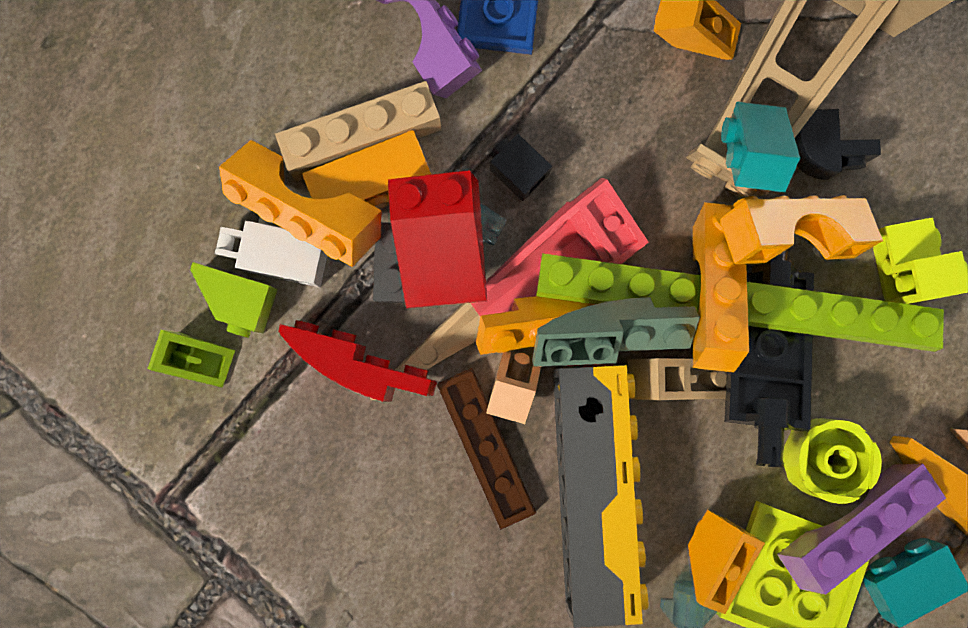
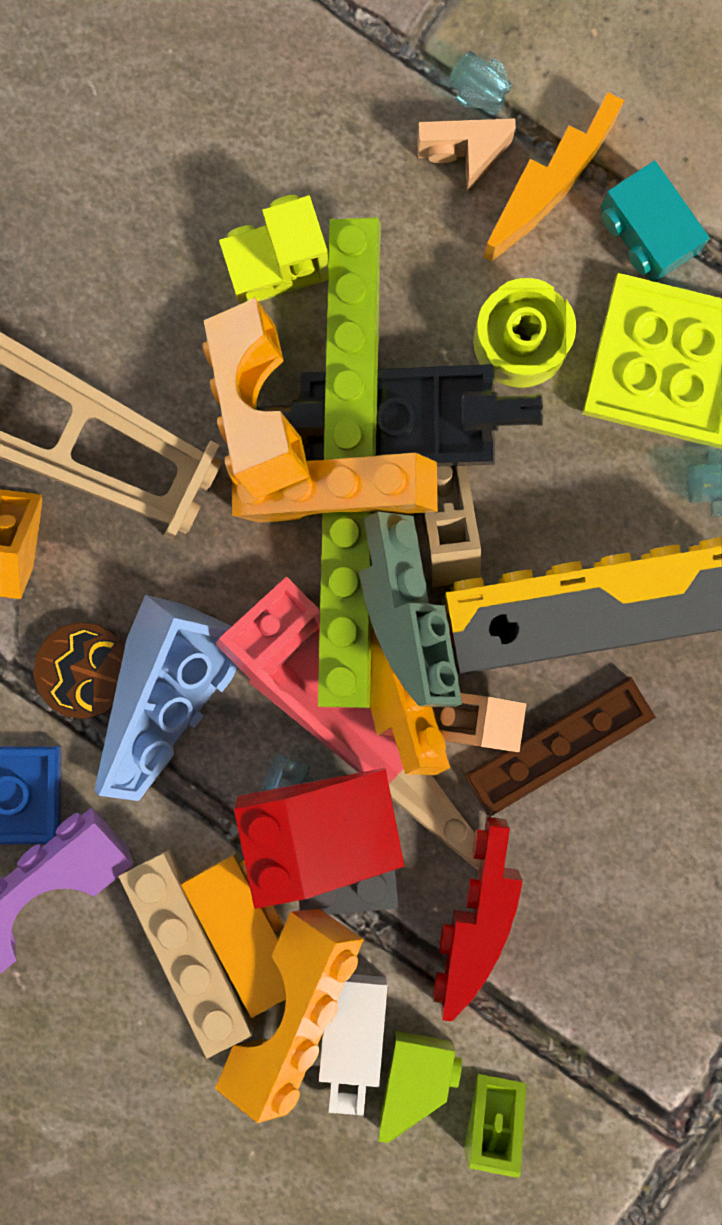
camera: 90 degrees left, 0 degrees up
(519, 166) = (208, 746): black brick -> none
(571, 134) = (161, 687): none -> light blue wedge
(589, 75) = (79, 670): none -> tile
(720, 560) = (658, 452): light orange slope -> none
(760, 146) = (165, 462): teal brick -> none
(824, 153) = (150, 378): black brick -> none
(833, 552) = (627, 317): medium lavender arch -> none

